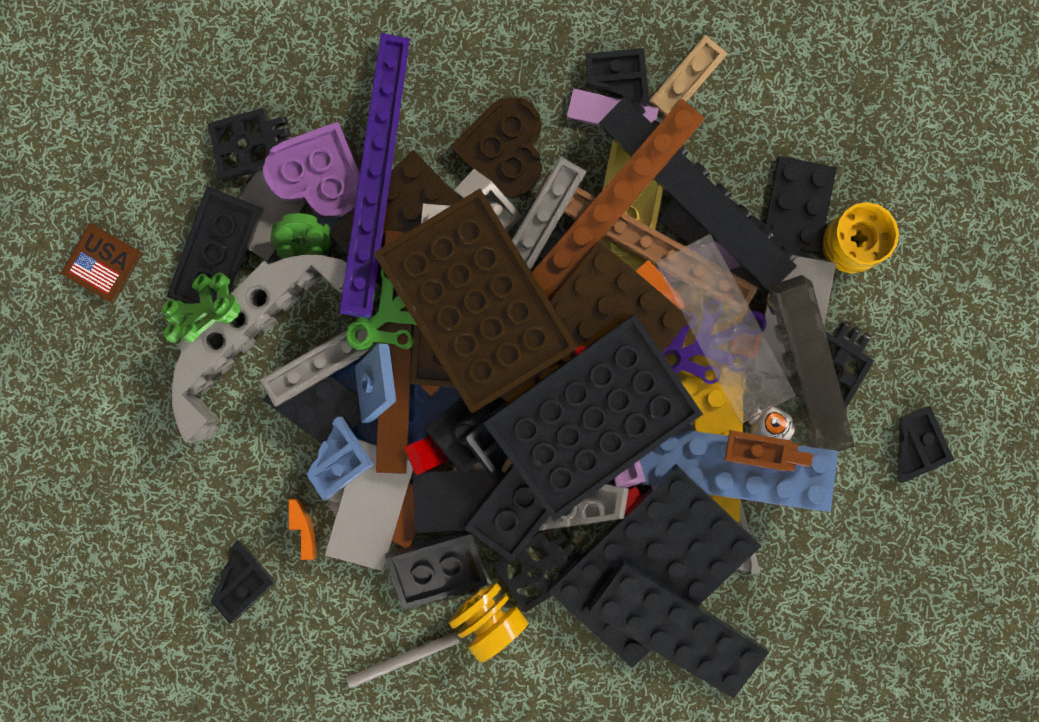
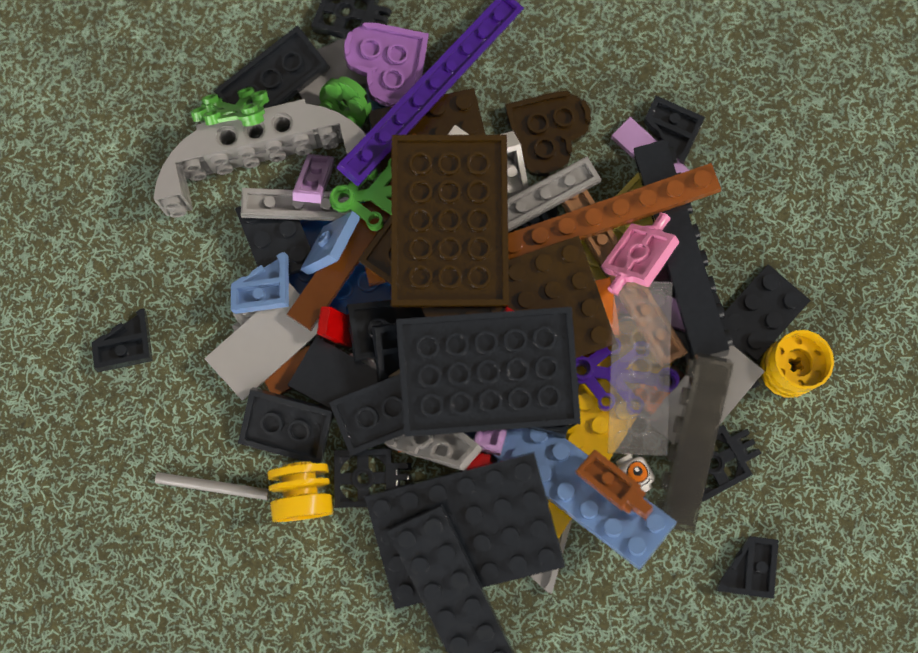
camera: 35 degrees right, 10 degrees down
(101, 263) = (181, 39): reddish brown tile -> none
(300, 520) = (203, 320): orange slope -> none
(318, 329) = (313, 178): none -> lavender tile
(665, 224) = (640, 254): none -> bright pink plate
(688, 75) = (734, 158): tan tile -> none

